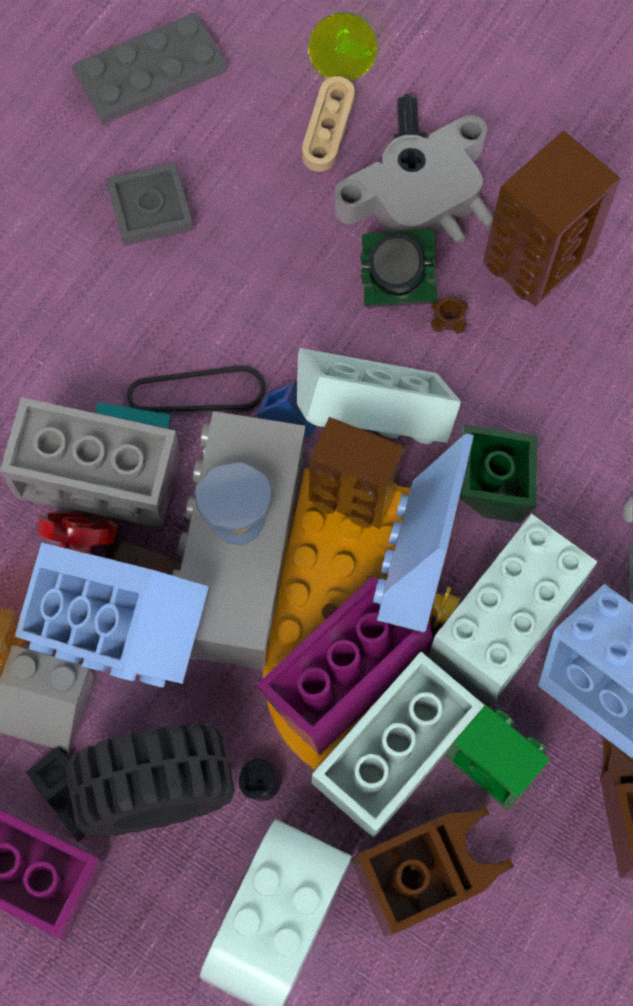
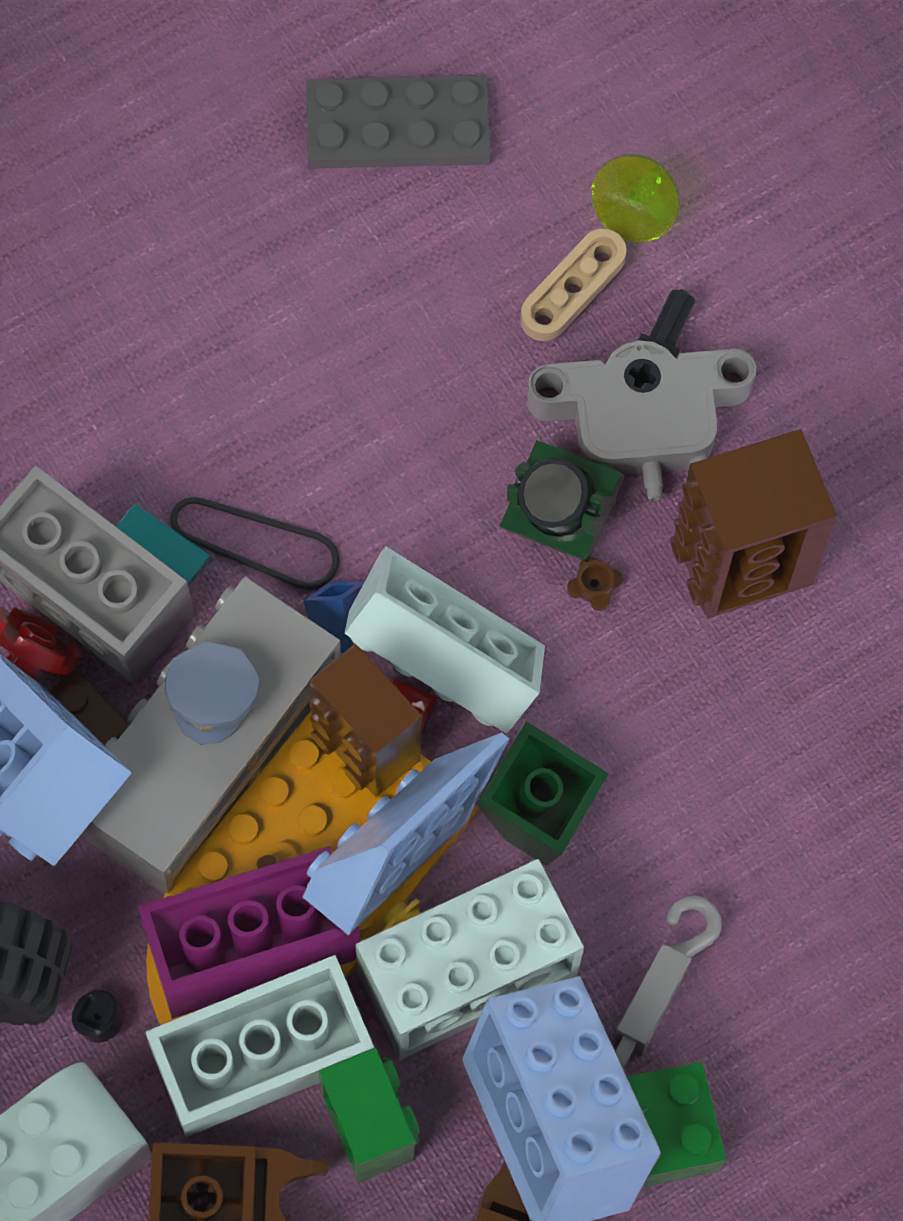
camera: 25 degrees right, 0 degrees up
(149, 204) = (311, 292): dark grey plate -> none

